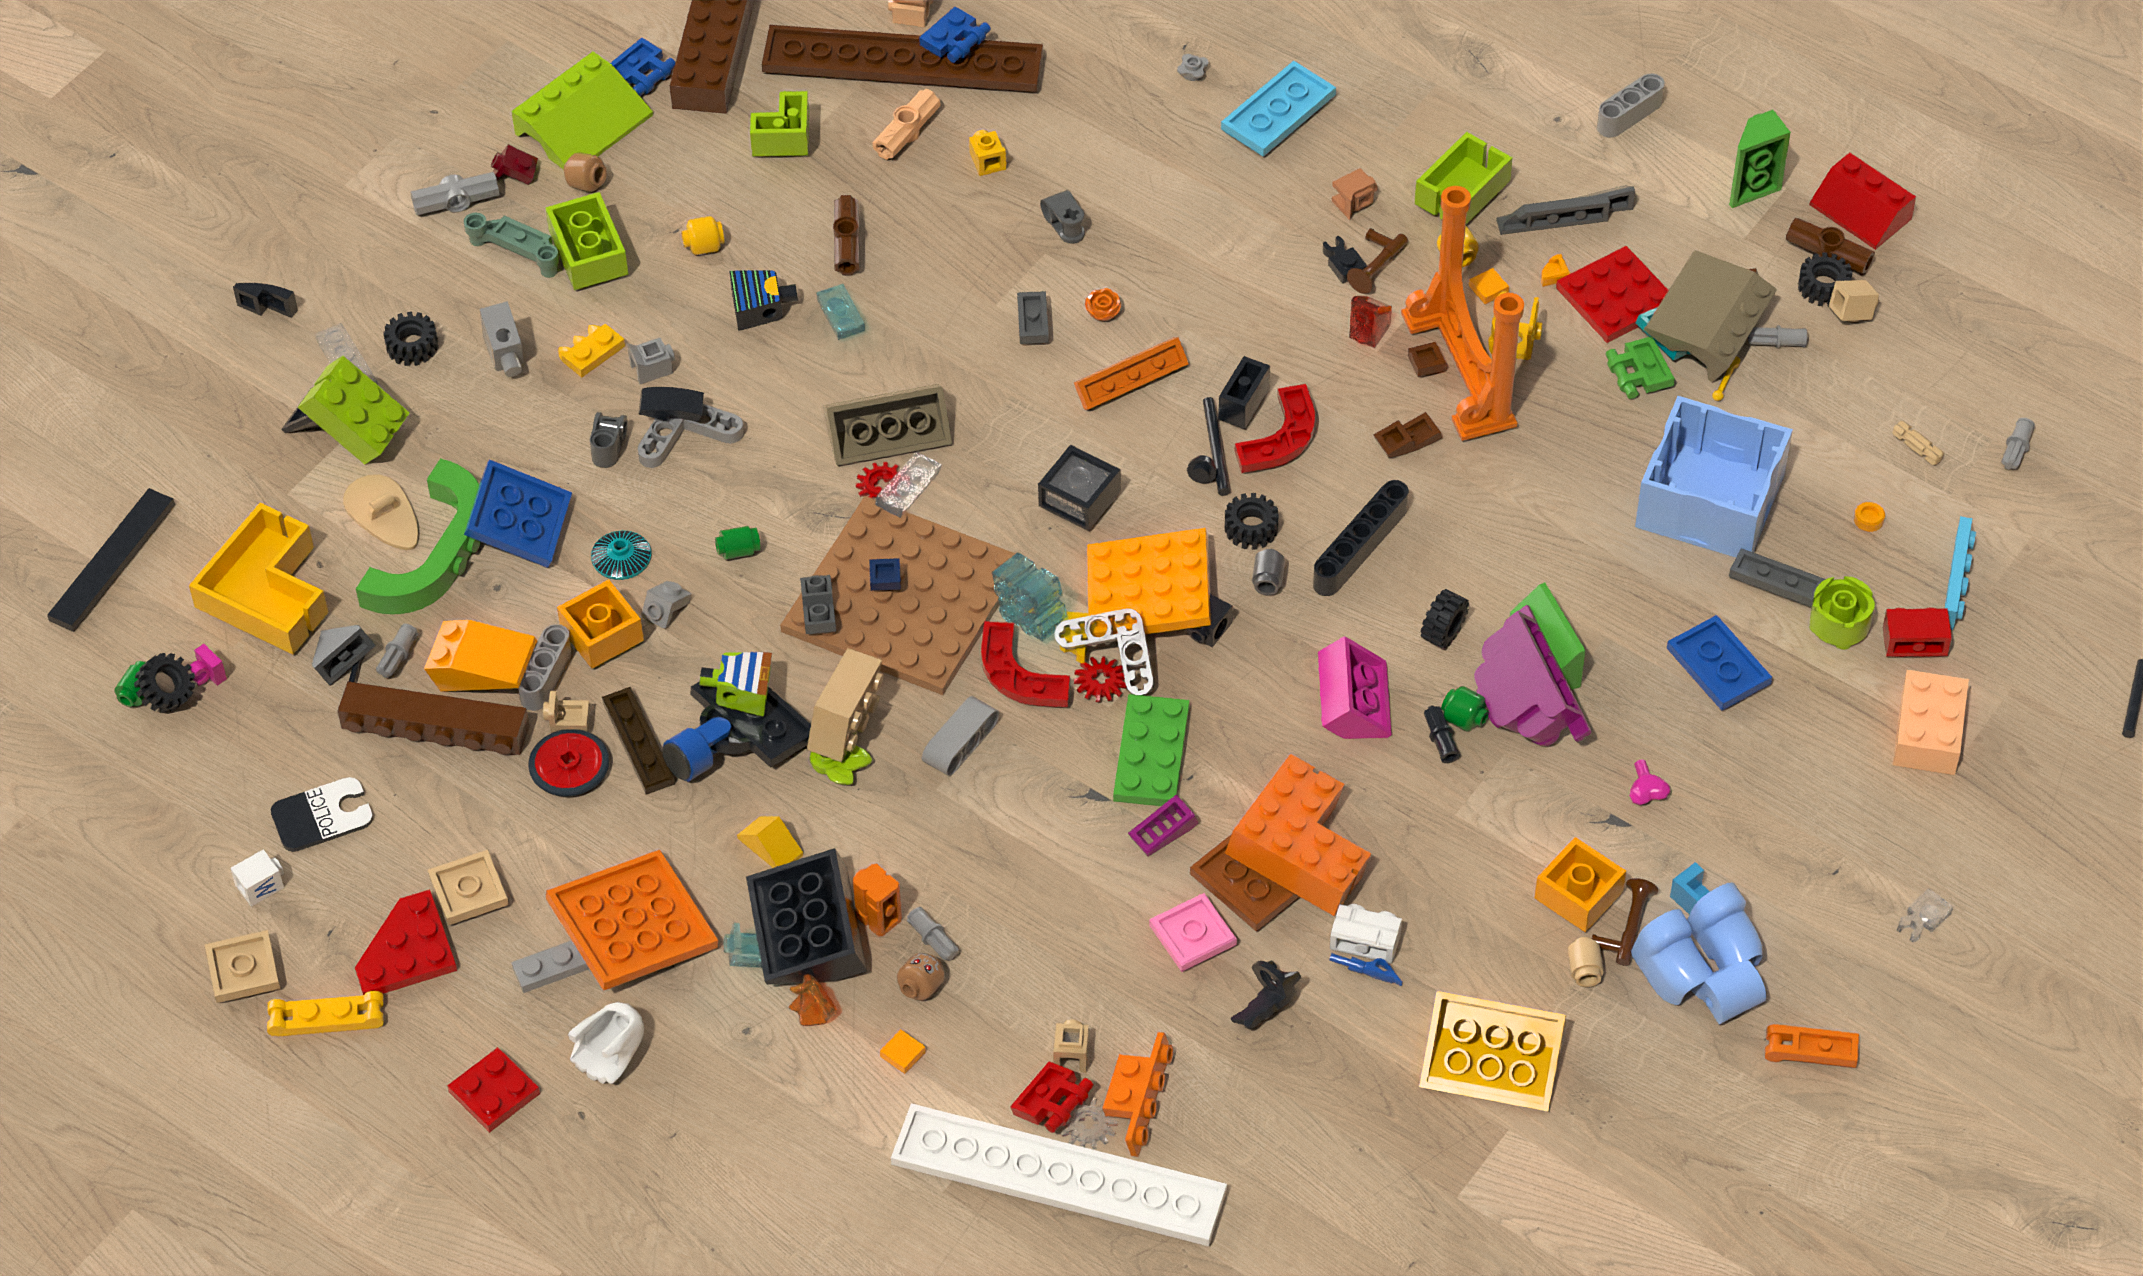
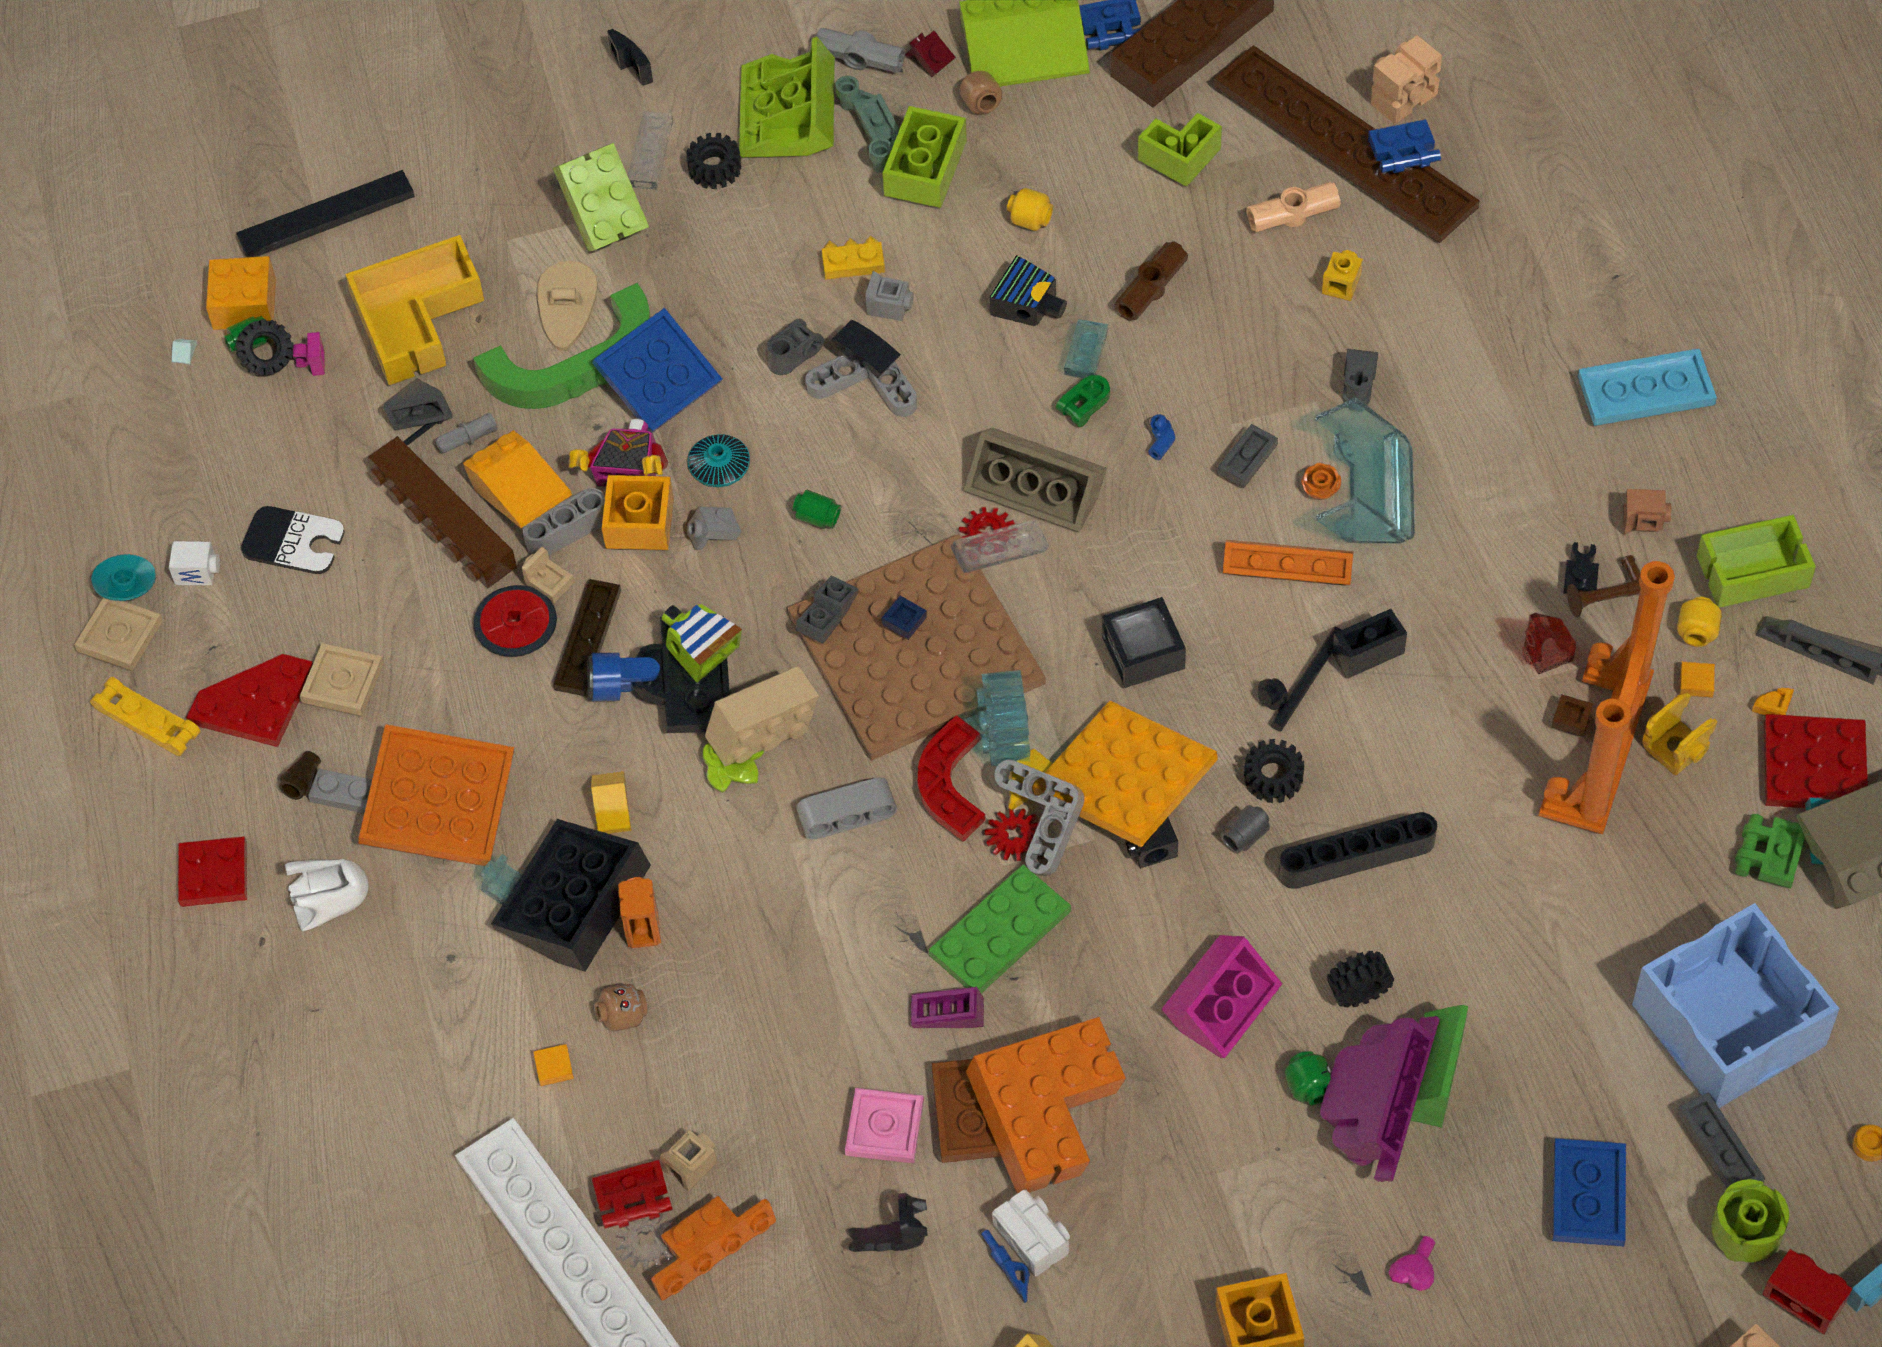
camera: 40 degrees right, 5 degrees up
(85, 730) = (183, 350): none -> light aqua piece
(98, 654) = (240, 290): none -> light orange brick
(208, 922) = (123, 577): none -> teal dish
(432, 264) = (788, 104): none -> lime piece
(502, 345) = (779, 205): light grey torso -> none
(502, 977) = (299, 777): none -> dark brown cone
(549, 587) = (622, 453): none -> torso
(812, 1002) = (519, 968): clear orange piece -> none
(872, 338) = (1092, 391): none -> green plate
(932, 934) = (668, 975): light grey axle -> none
(955, 339) = (1163, 434): none -> blue arm
(1139, 276) = (1379, 476): none -> clear light blue windscreen
(1192, 67) = (1602, 307): light grey plate -> none
(1286, 442) = (1378, 714): red plate -> none
(1407, 438) = (1487, 780): reddish brown slope -> none
(1441, 734) = (1267, 1088): black axle -> none
(1718, 394) = (1872, 902): yellow hinge -> none

